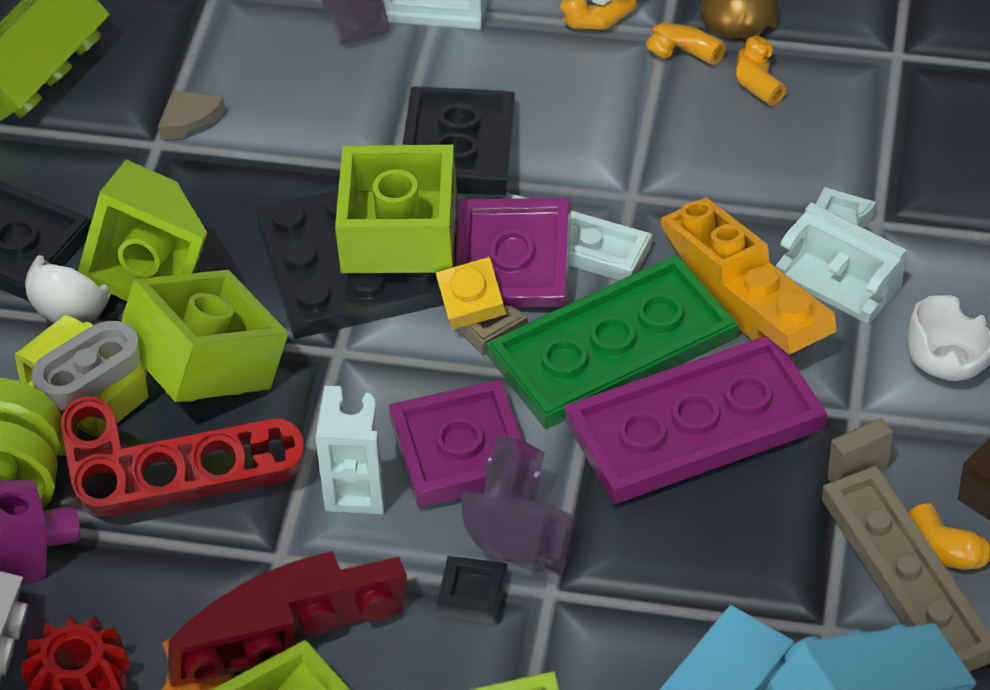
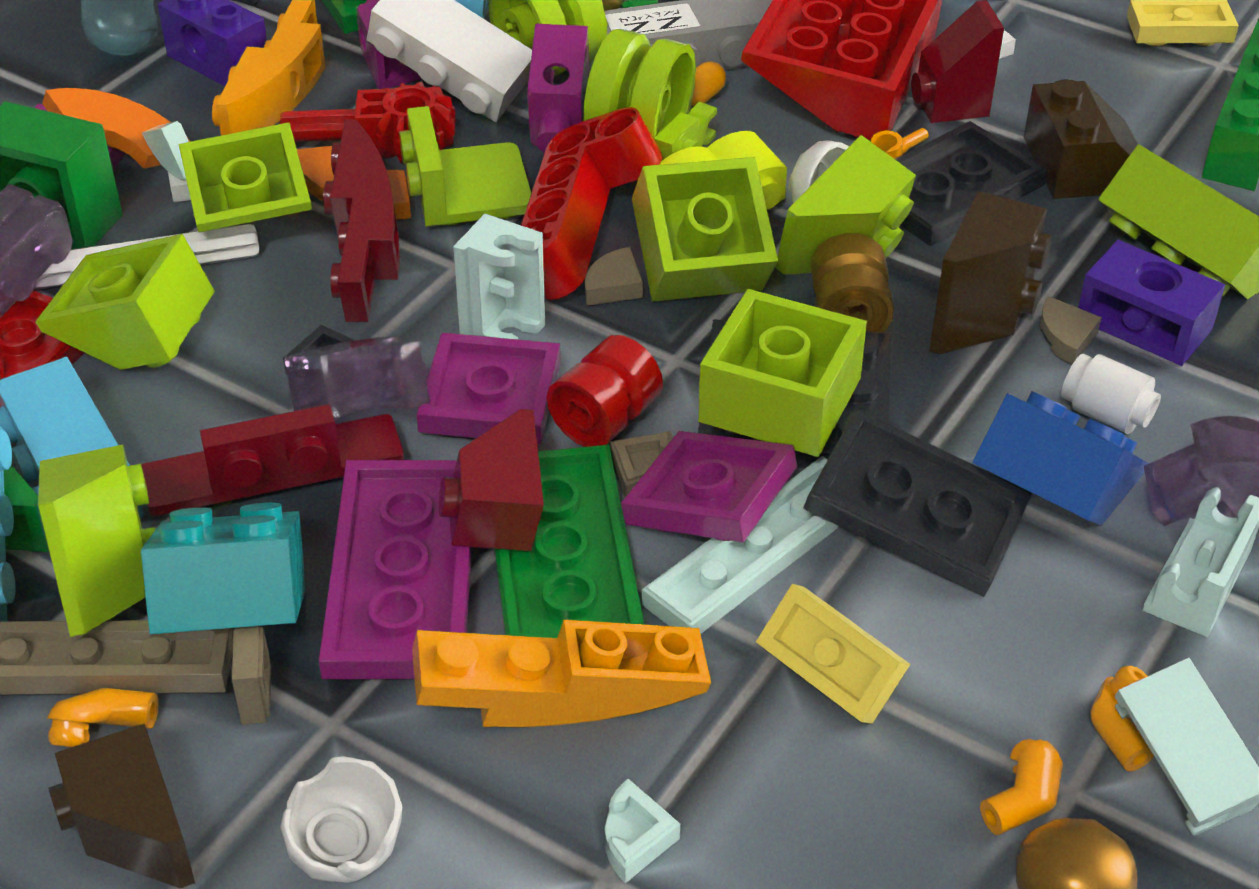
camera: 110 degrees right, 5 degrees down
(82, 366) = (689, 133): light grey plate -> none
(143, 63) = (1151, 301): none -> dark purple brick
(155, 581) = (462, 181): none -> lime bracket
(185, 137) = (990, 273): none -> dark brown slope
(232, 233) = (853, 280): none -> pearl gold wheel
(249, 410) = (613, 279): none -> dark tan tile
(273, 65) = (1111, 392): none -> white brick
(369, 73) = (1052, 457): none -> blue slope
(438, 349) = (605, 391): none -> red wheel
(470, 293) = (664, 430): yellow plate -> none
(602, 356) = (496, 488): none -> dark red slope
(636, 148) = (832, 653): none -> light yellow plate
(638, 550) = (267, 457): none -> dark red bracket
(753, 69) = (938, 841): light orange arm -> none
(799, 481) = (224, 569): none -> teal brick
(831, 568) = (94, 533): none -> lime slope
(842, 263) = (540, 787): light aqua hinge -> none

